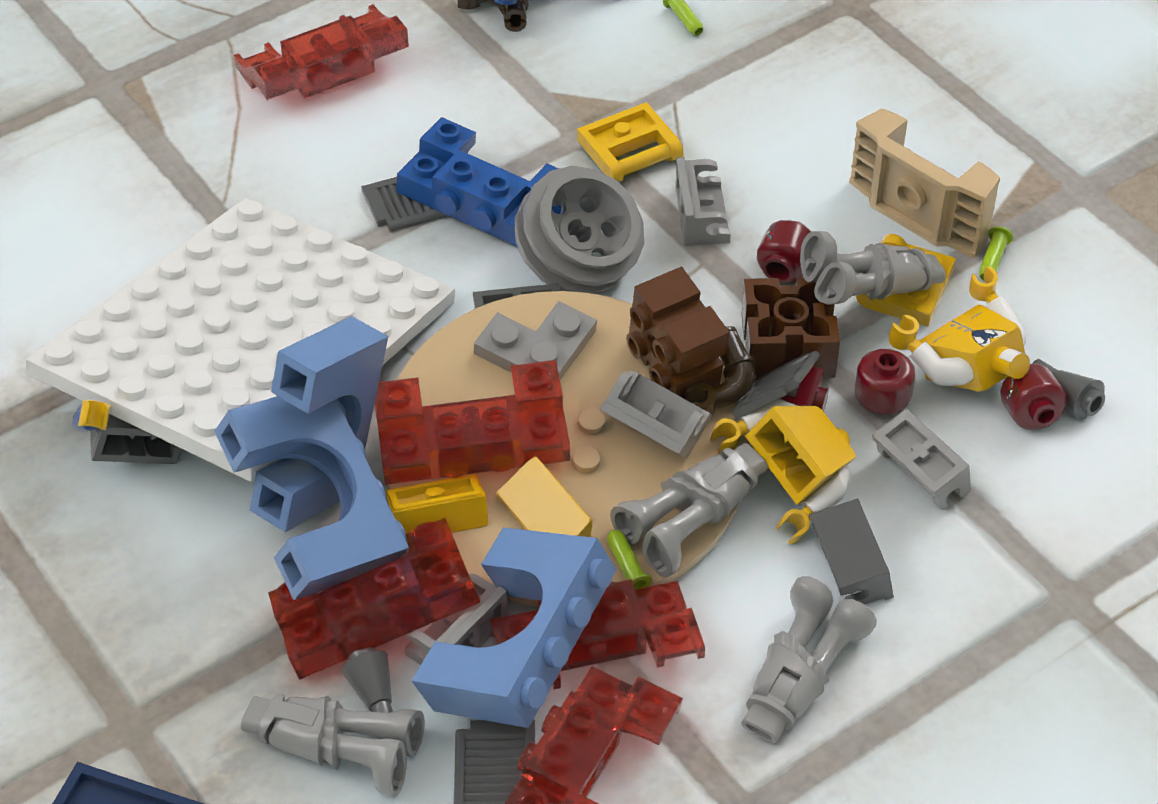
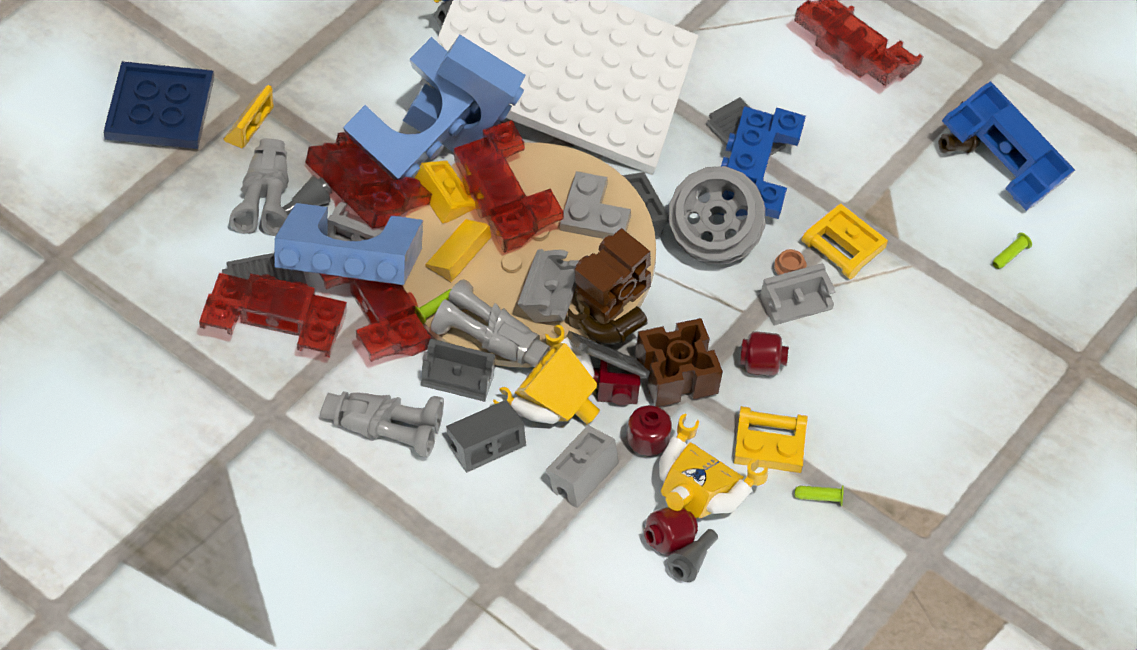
camera: 70 degrees right, 5 degrees up
(184, 734) = (251, 118): none -> yellow slope
(652, 199) = (789, 261): none -> nougat plate
(737, 565) = (458, 370): none -> dark grey hinge
(883, 267) = (745, 407): light grey piece -> none
(918, 192) = (870, 396): tan plate -> none

